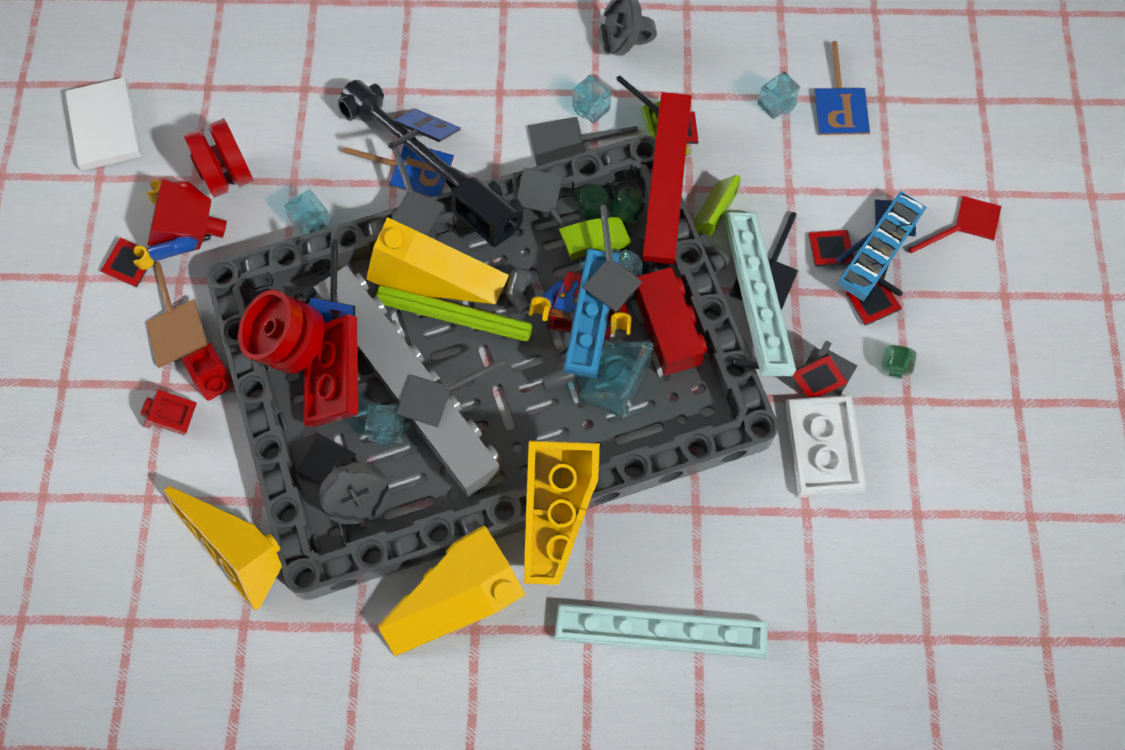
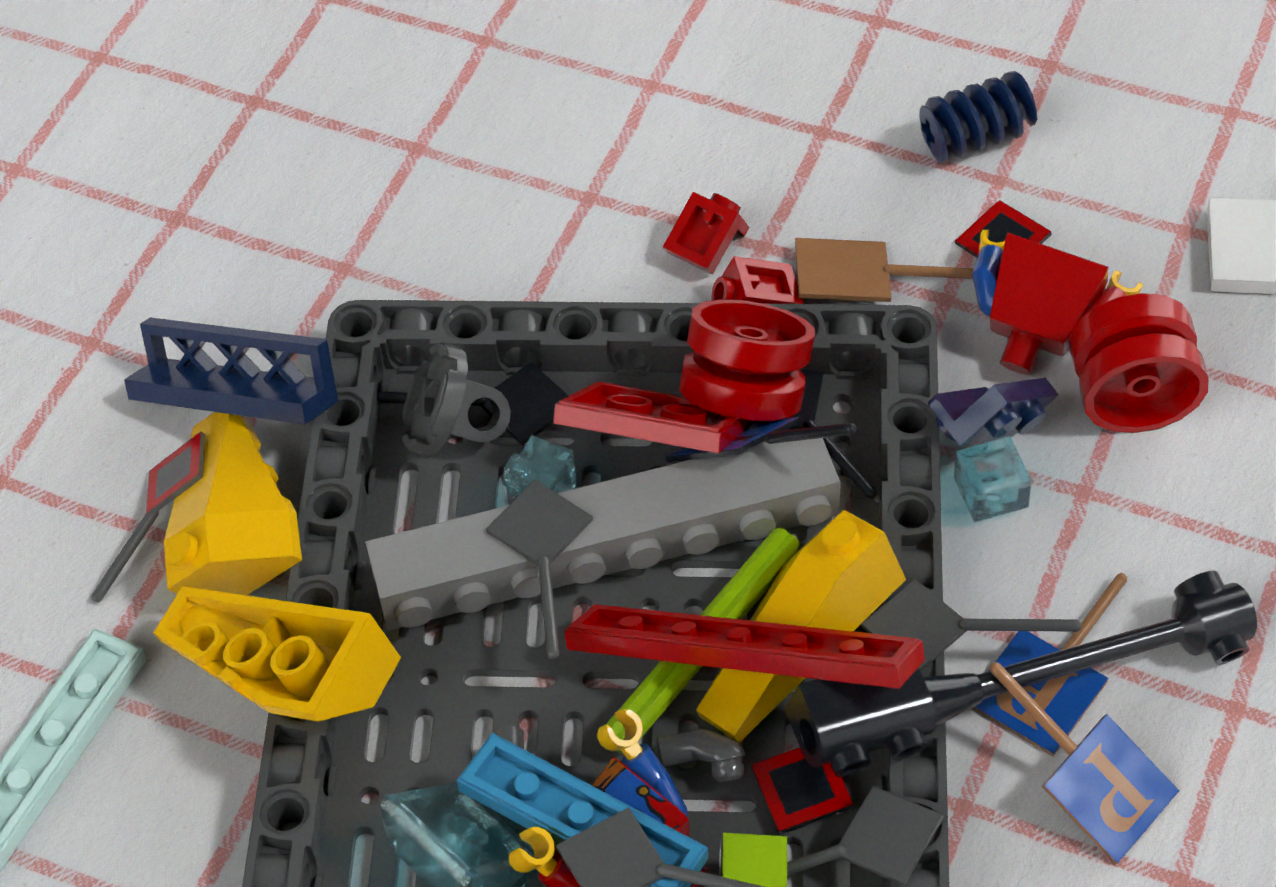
camera: 115 degrees right, 15 degrees down
(42, 291) = (976, 112): none -> dark blue piece
(233, 543) = (434, 247): yellow wedge -> none
(272, 215) = (992, 413): none -> dark blue bracket
(371, 629) = (238, 385): none -> dark blue fence
(423, 124) = (1115, 686): piece -> none
(443, 640) = (165, 483): none -> dark grey piece
(467, 123) = (1103, 781): none -> piece
(469, 271) = (747, 645): none -> red tile
(515, 251) = (799, 791): none -> piece

